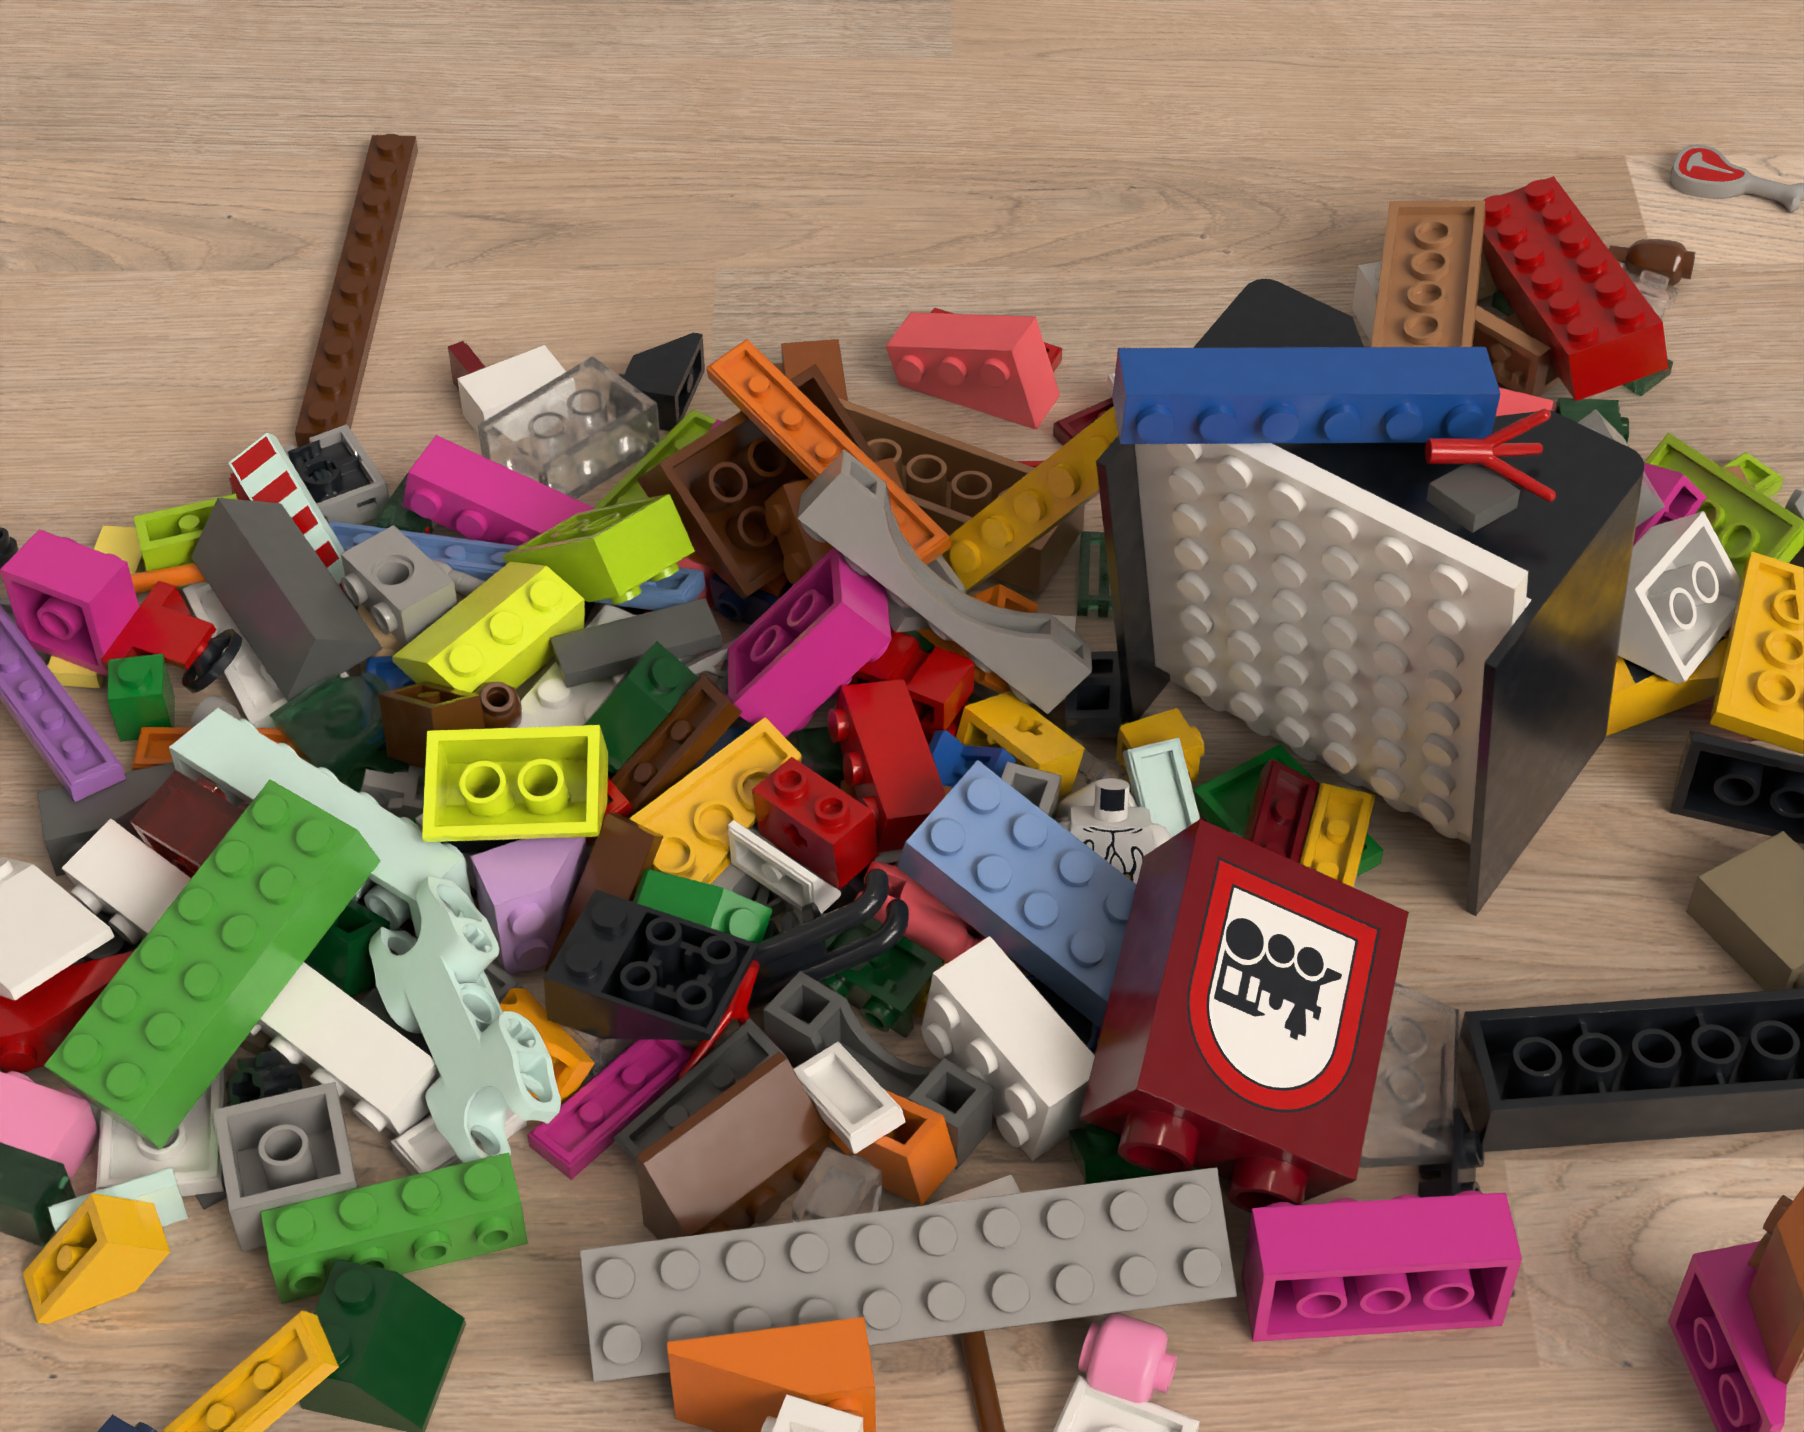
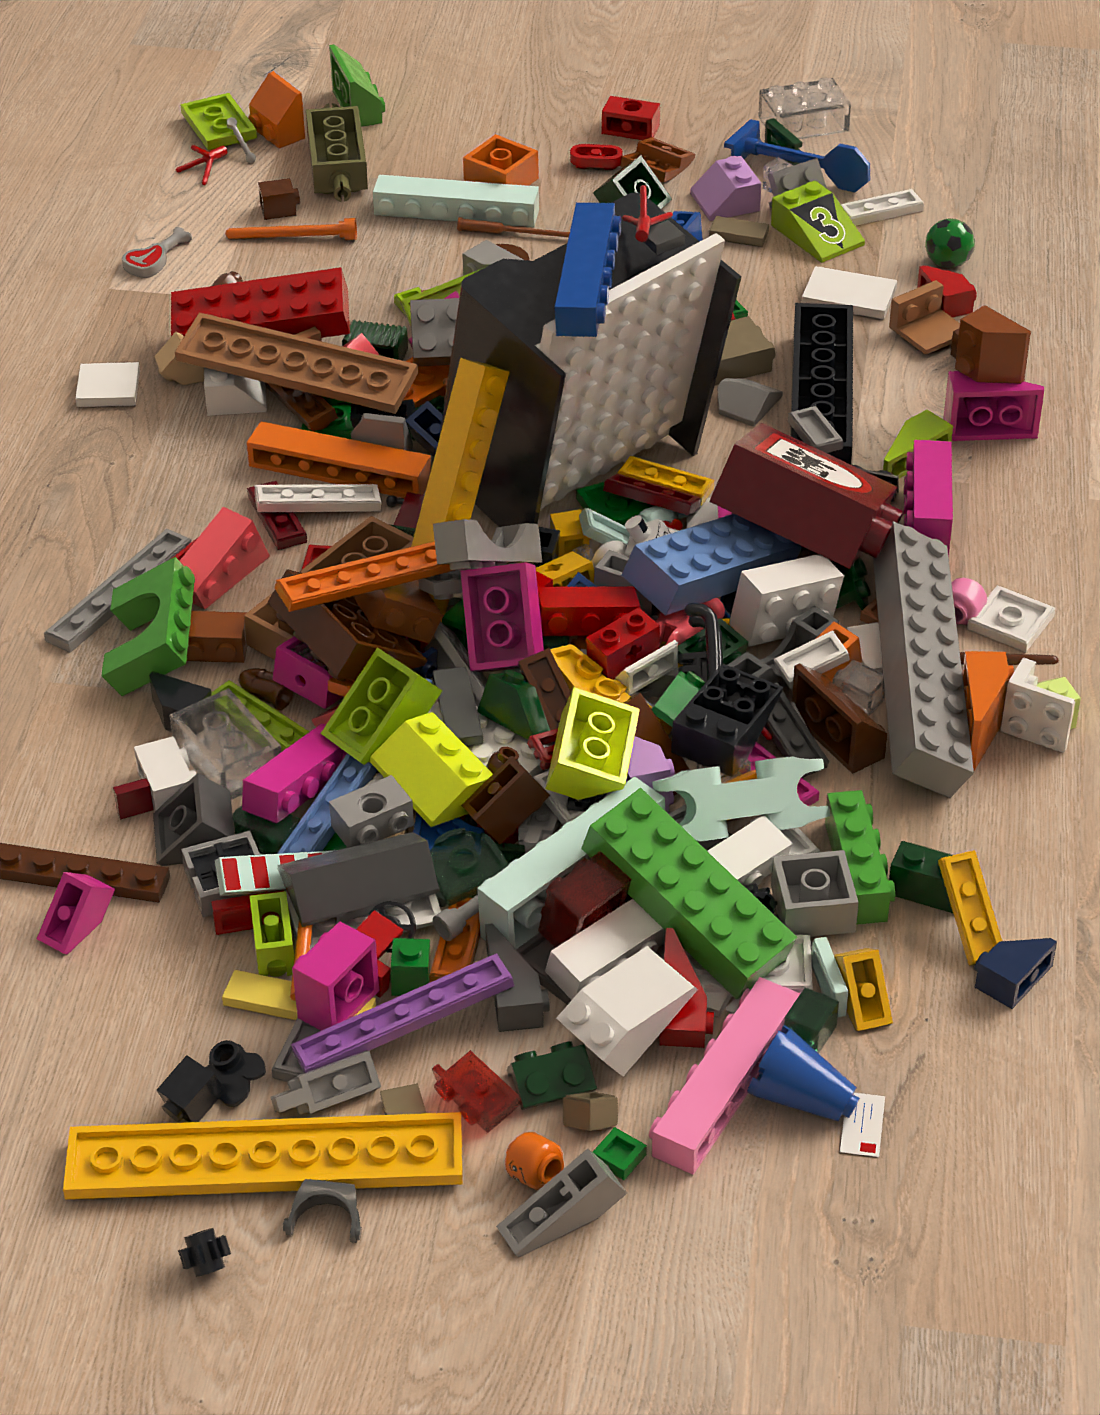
camera: 80 degrees left, 5 degrees down
(257, 362) = (74, 911): none -> dark pink slope
(403, 437) = (191, 817): none -> dark grey slope
(851, 309) = (162, 647): none -> bright green arch
(897, 284) = (95, 608): none -> light grey tile
(1365, 187) = (107, 384): none -> white tile
(1506, 1040) = (815, 429): none -> light grey tile
(1599, 1246) = (919, 427): none -> lime slope
(1657, 959) = (746, 399): none -> light grey slope

